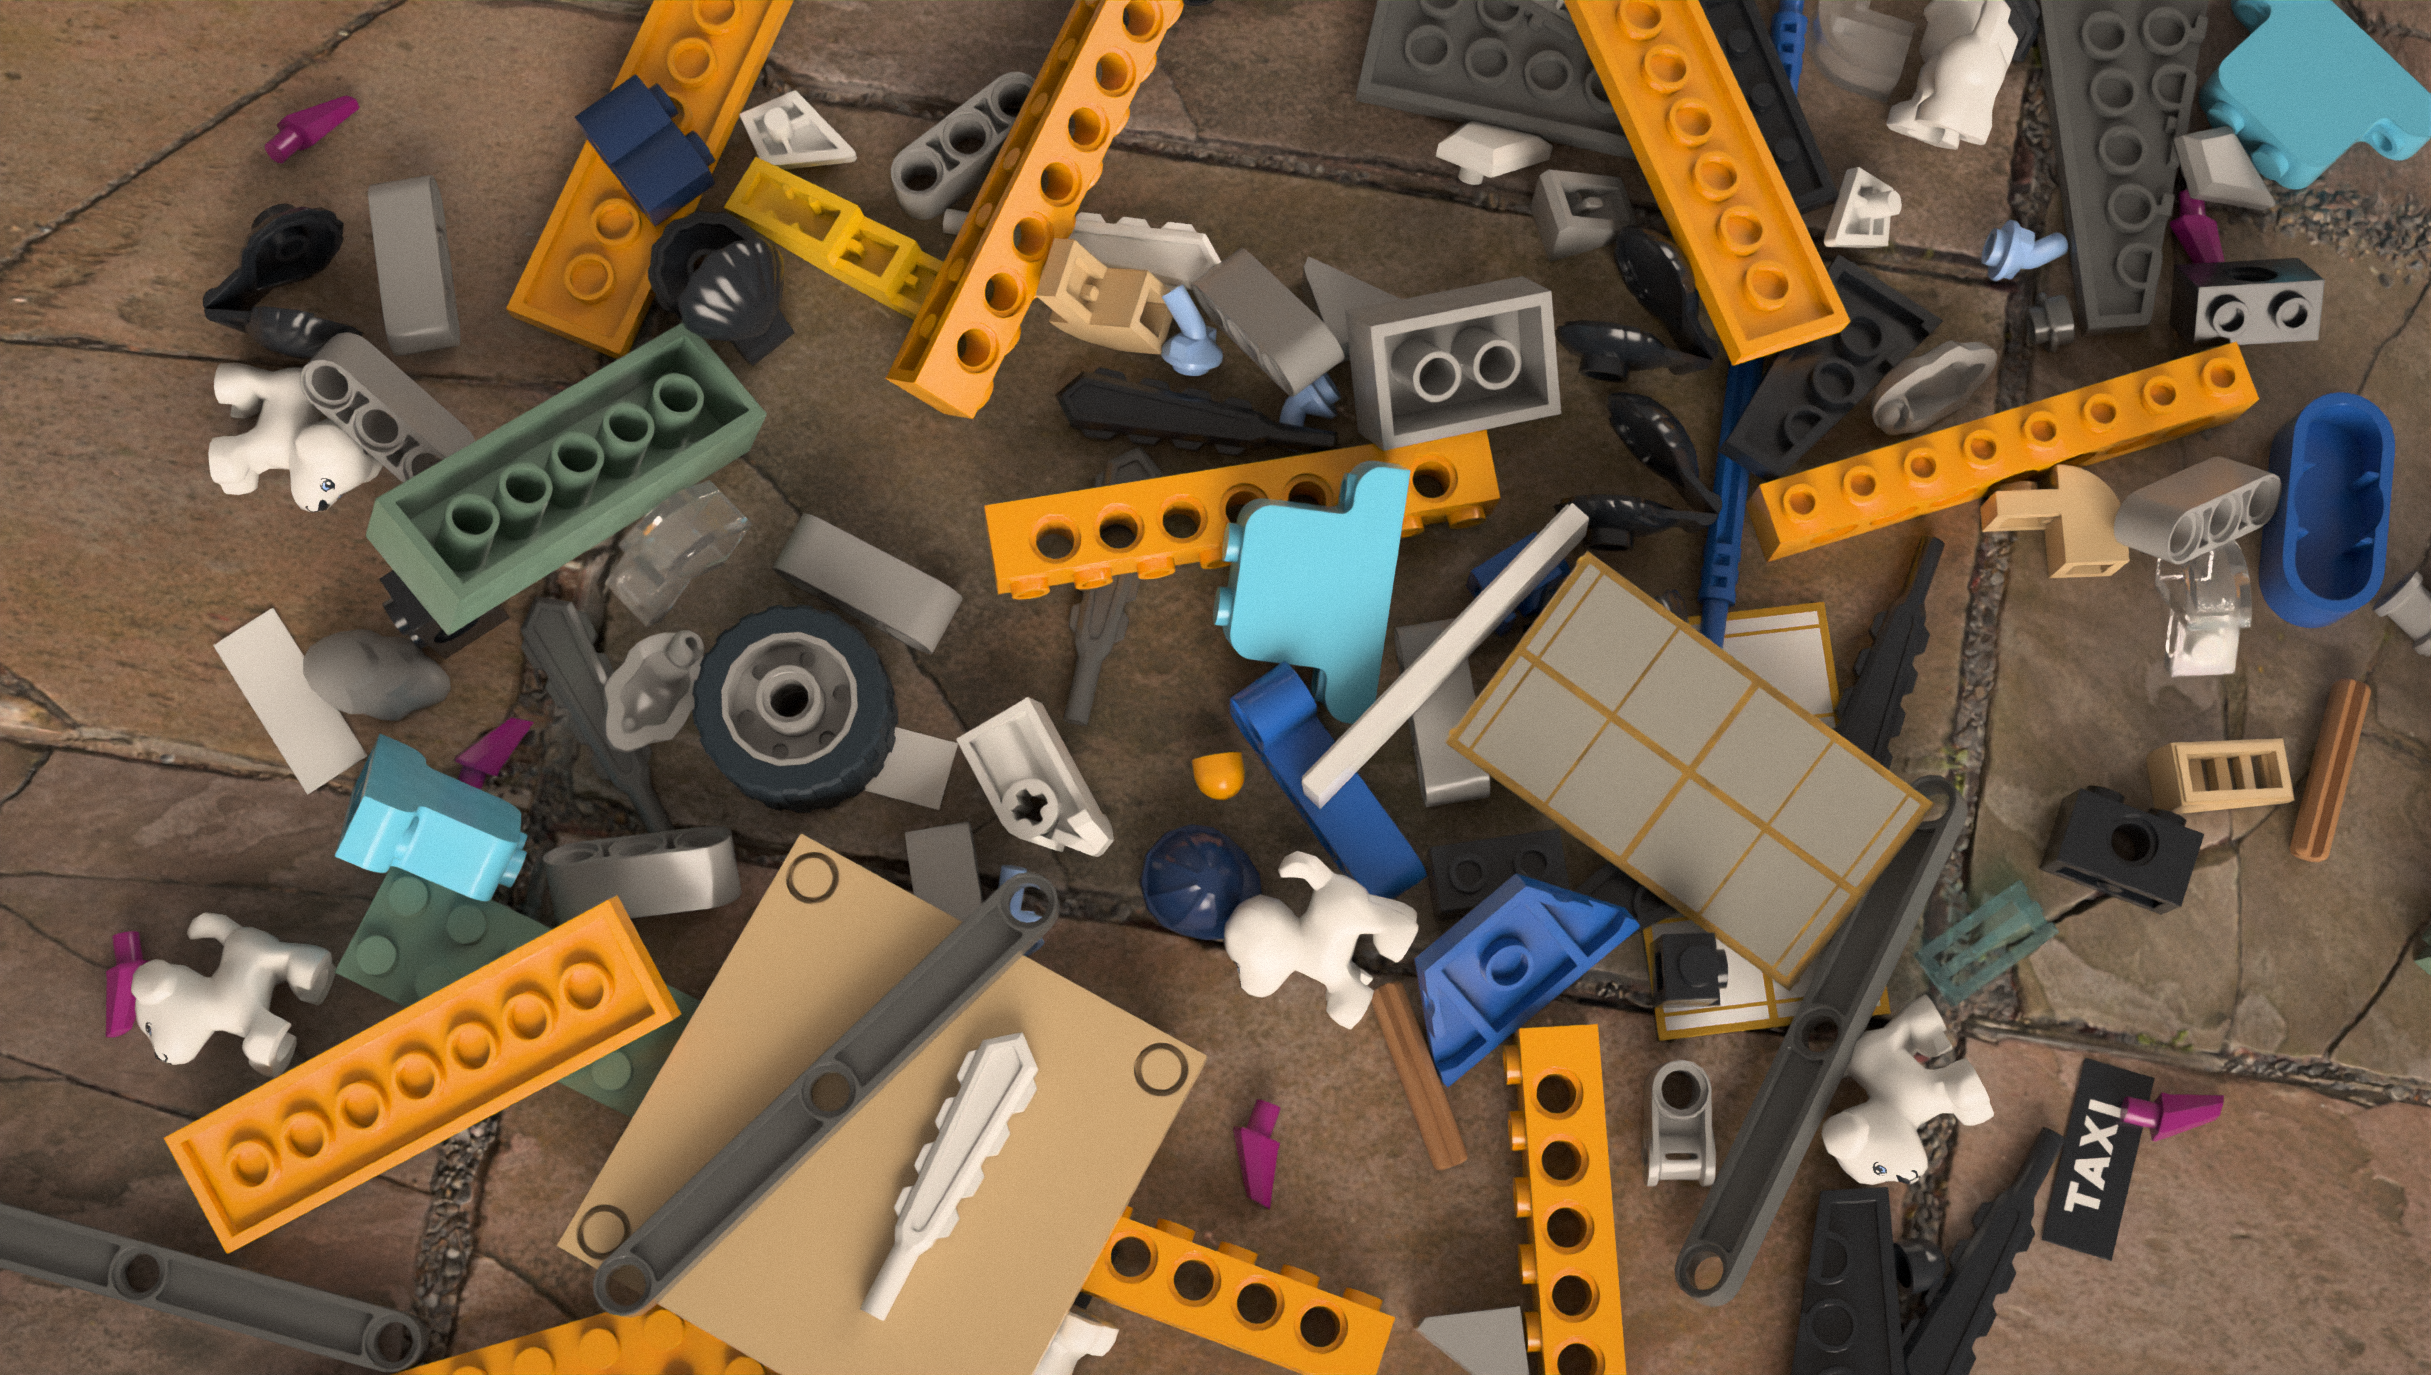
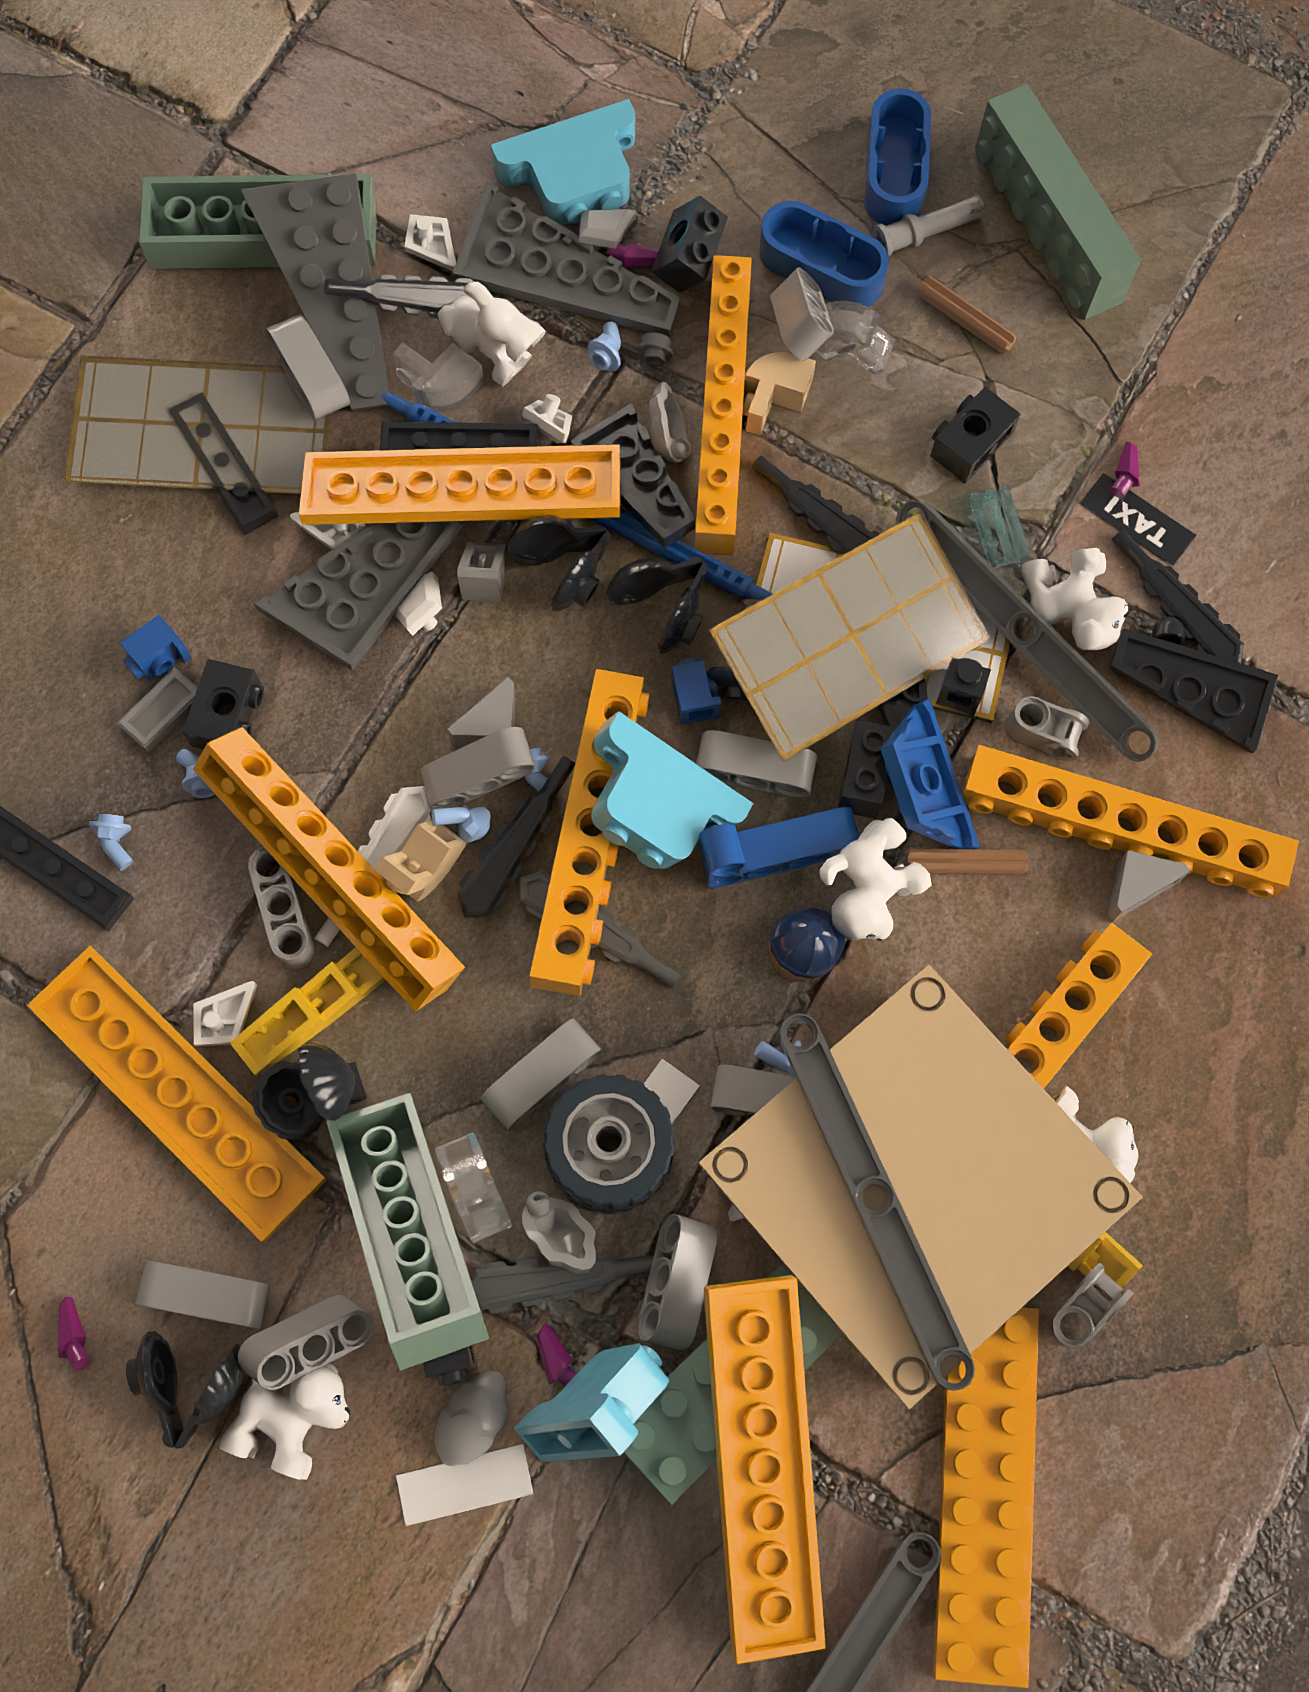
camera: 70 degrees left, 5 degrees down
(119, 998) = (617, 1662): magenta bar -> none
(184, 1008) = (655, 1620): white animal -> none
(646, 149) = (197, 1107): dark blue brick -> none
(971, 1126) = (925, 1118): white sword -> none
(1025, 757) = (692, 1016): white piece -> none
(1219, 774) = (745, 906): light orange hinge -> none
(1258, 1152) = (981, 970): magenta bar -> none
(1444, 655) = (732, 742): white tile -> none
(1453, 362) = (551, 670): light grey brick -> none
(2180, 785) = (942, 392): tan slope -> none

